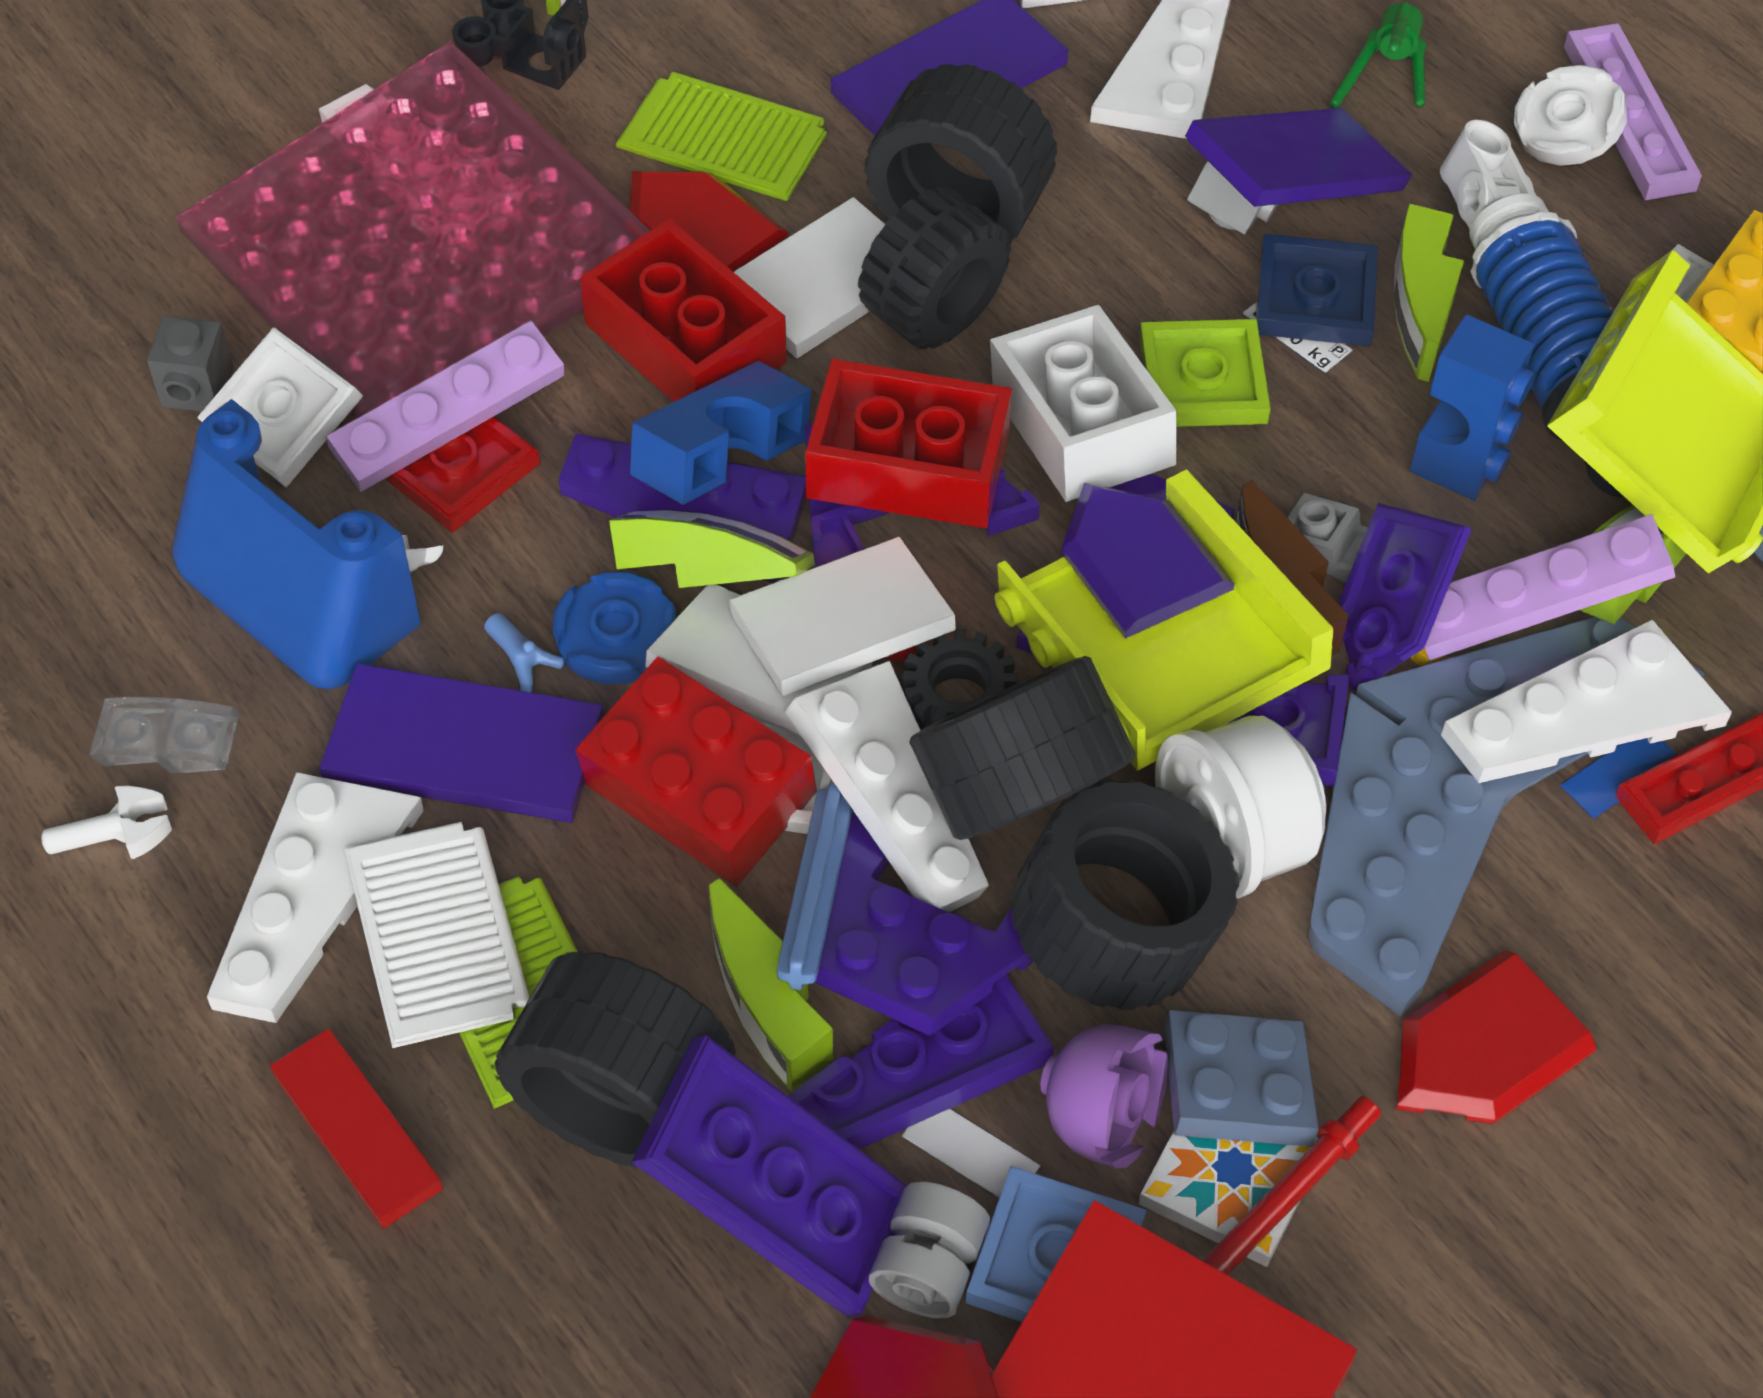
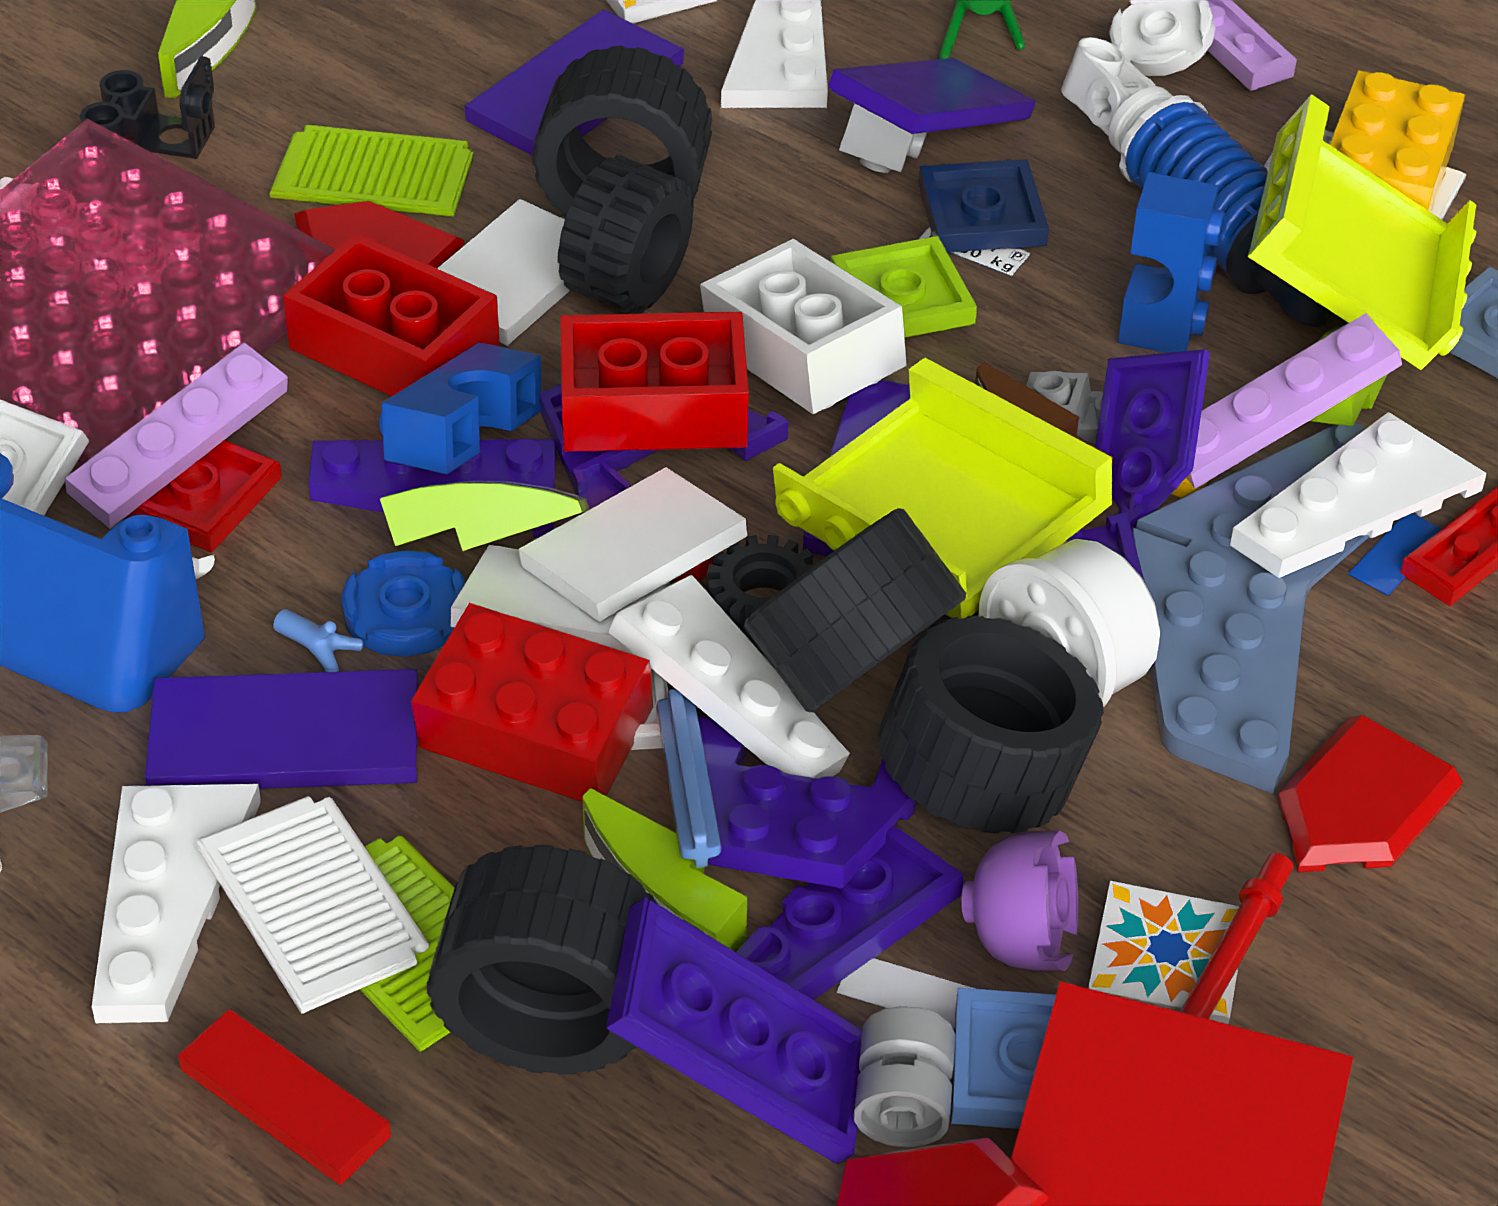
camera: 15 degrees left, 10 degrees down
(1139, 558) = (902, 443): dark purple tile -> none
(1240, 1078) = (1149, 868): sand blue plate -> none
(1424, 285) = (1080, 186): lime slope -> none

